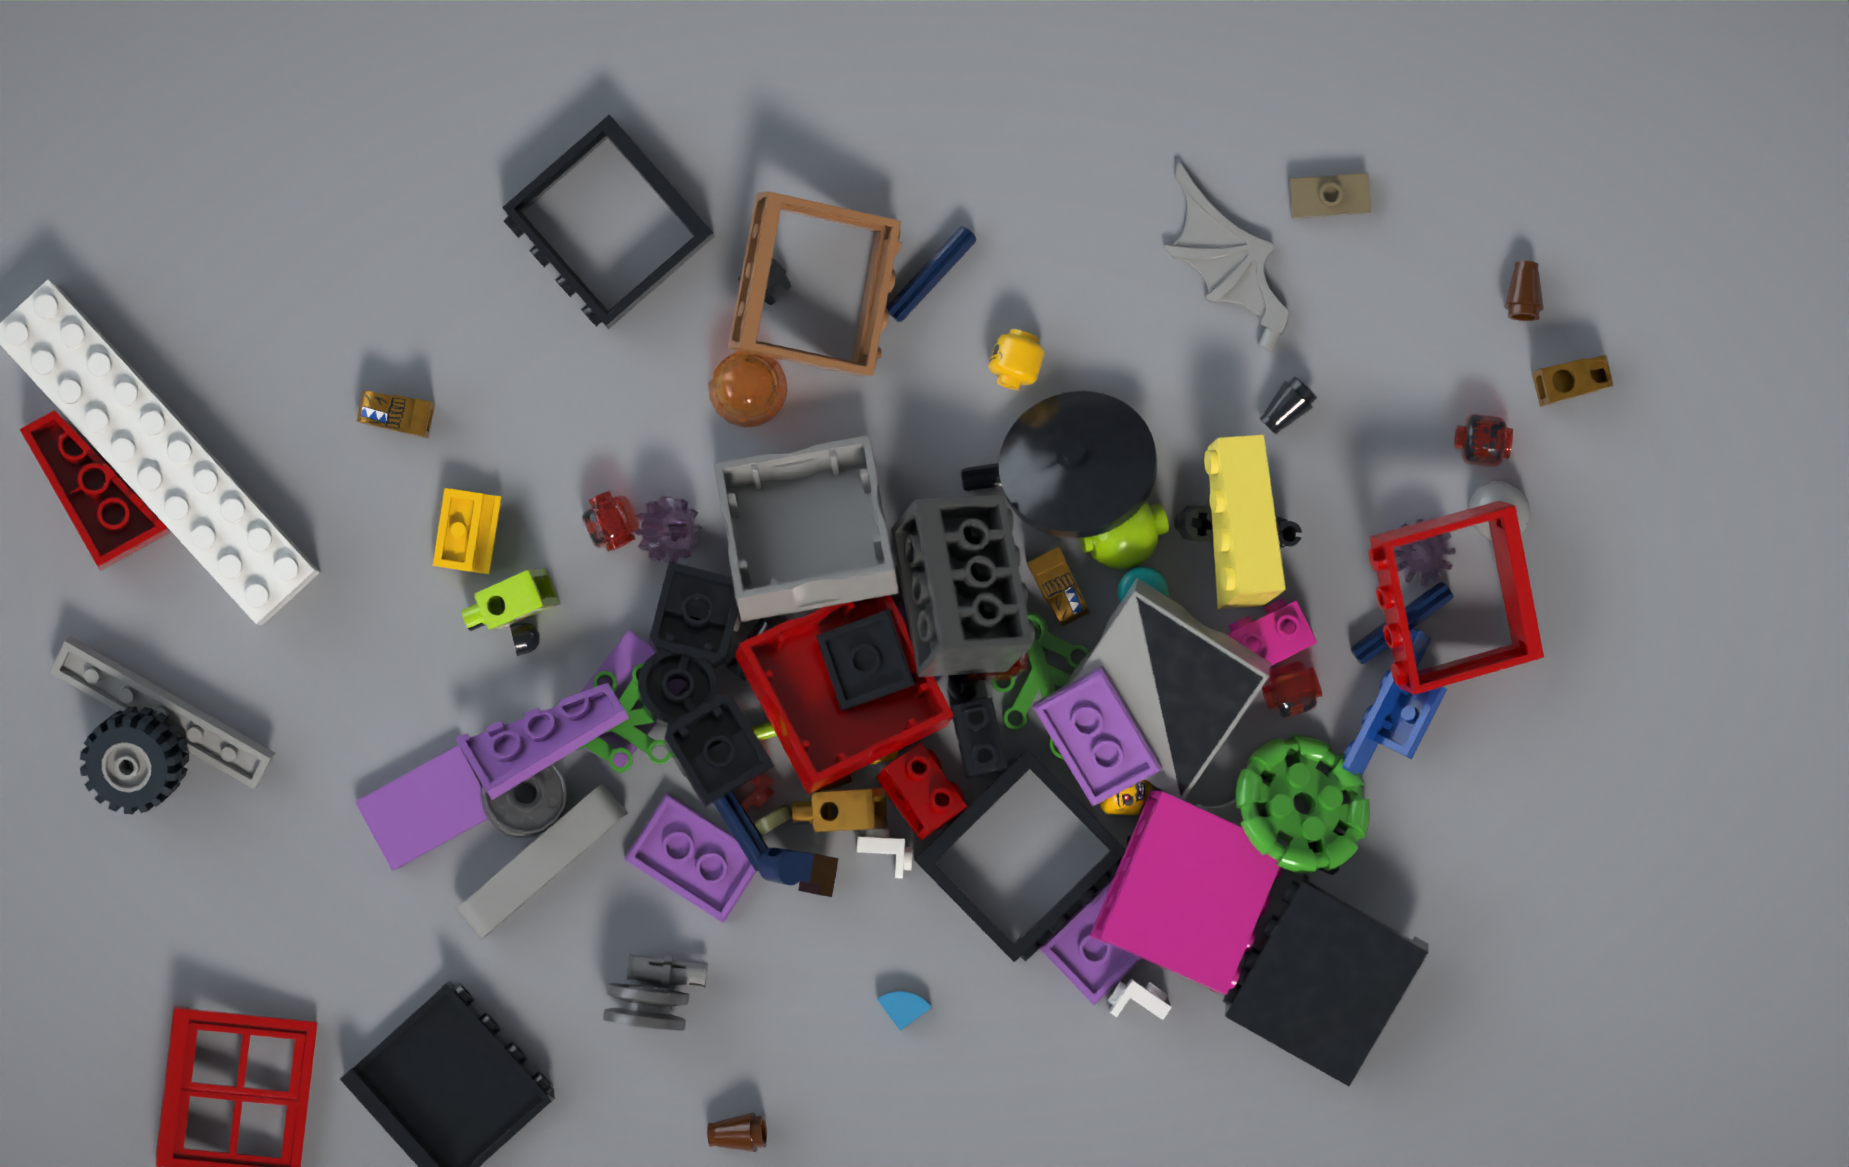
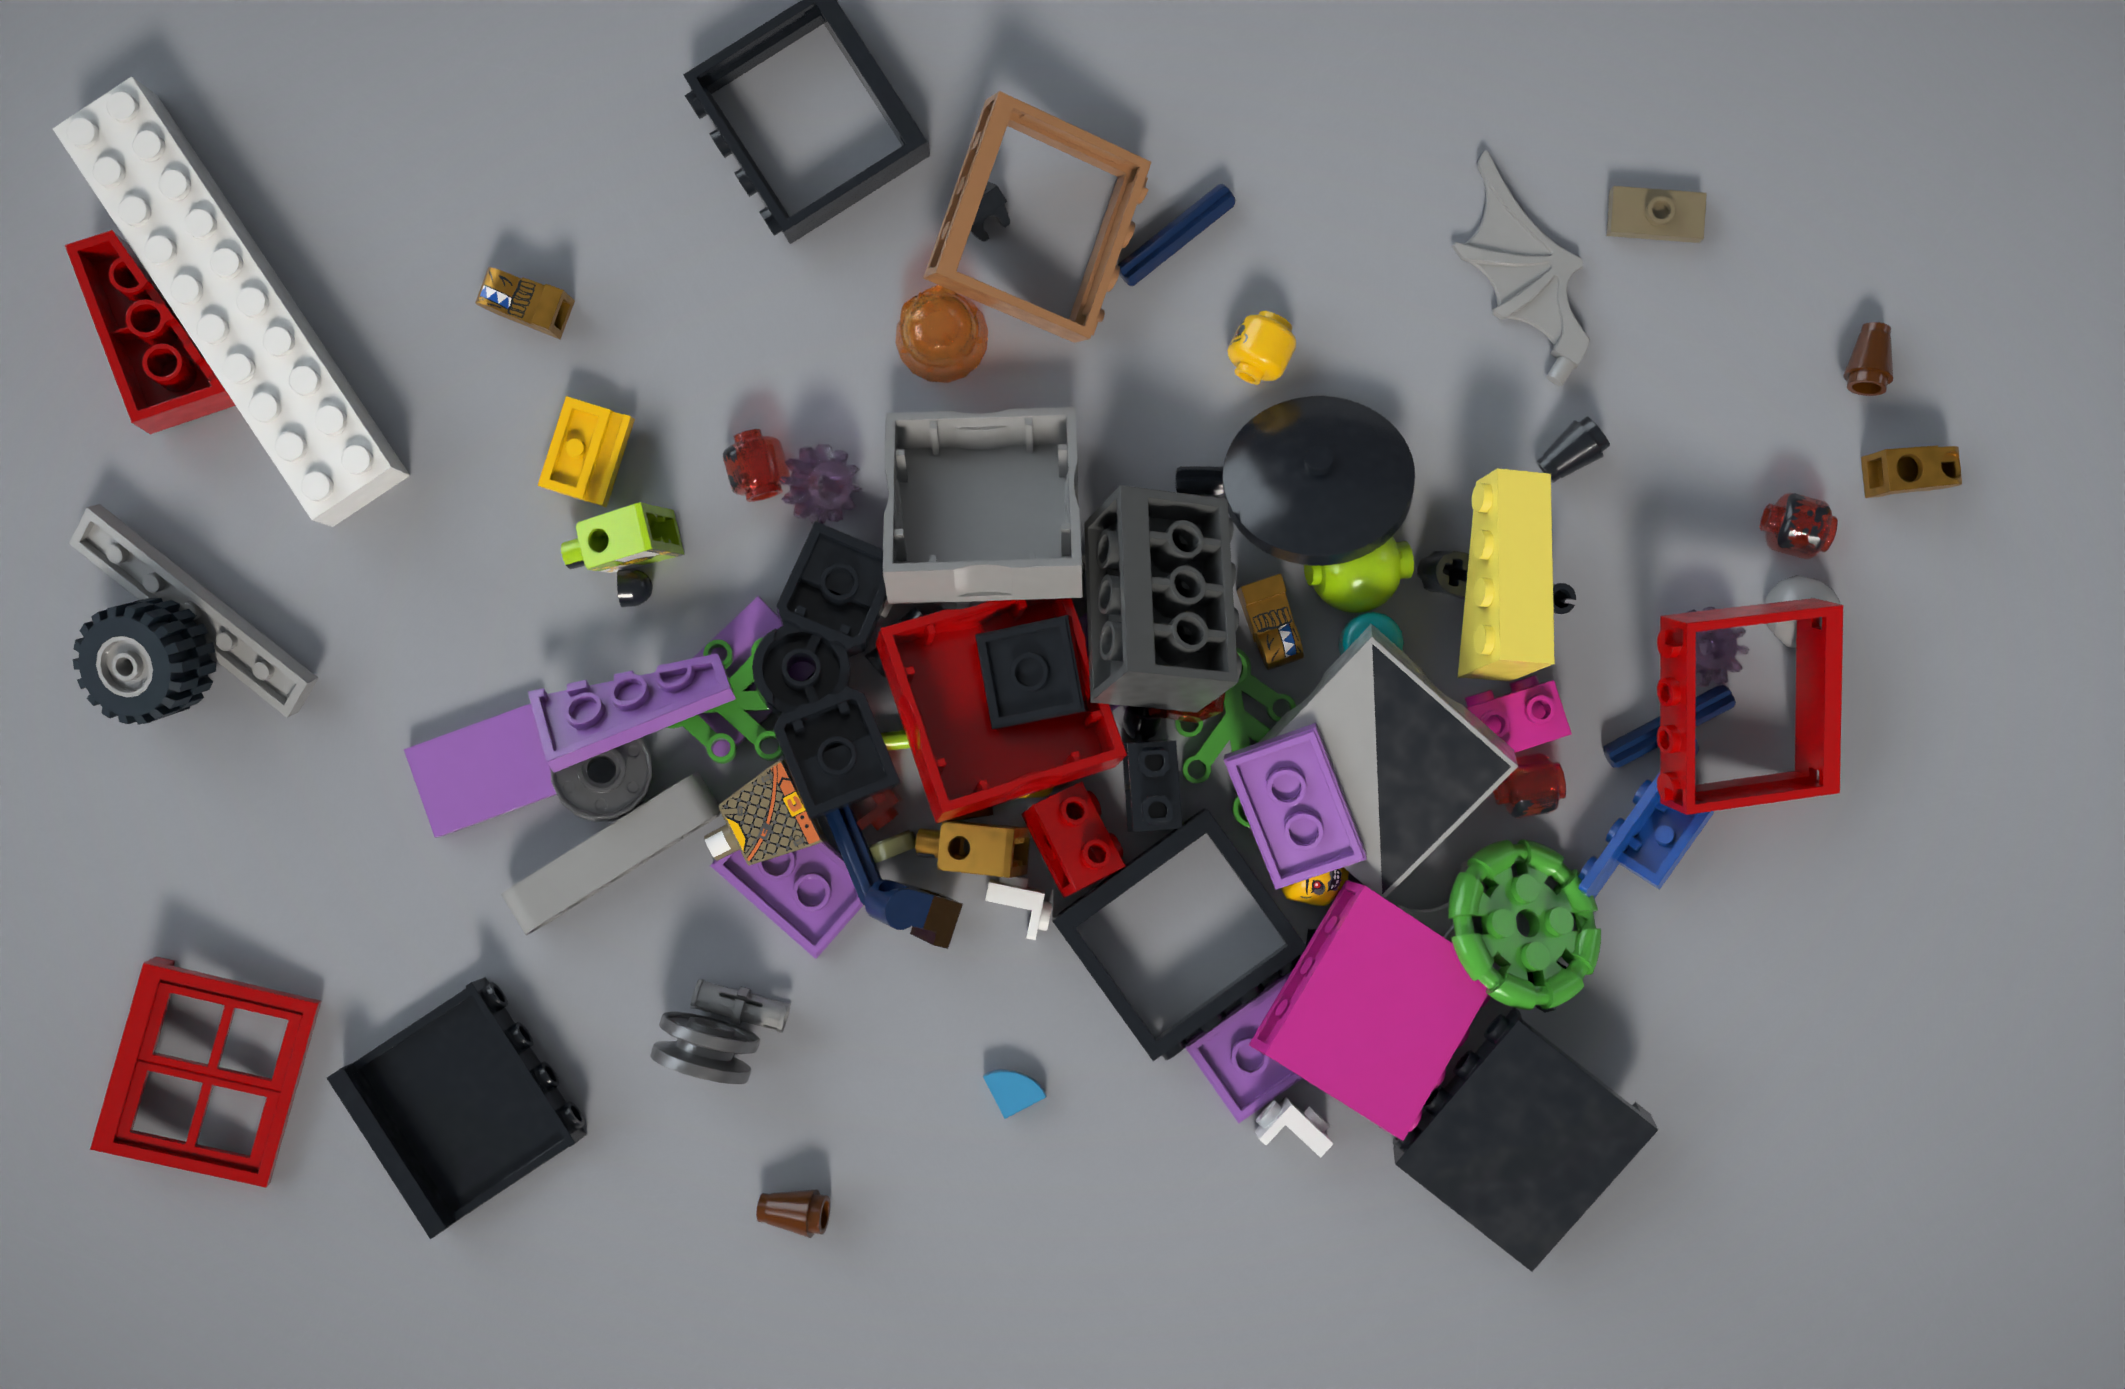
camera: 10 degrees right, 0 degrees up
(666, 813) = (765, 819): none -> torso

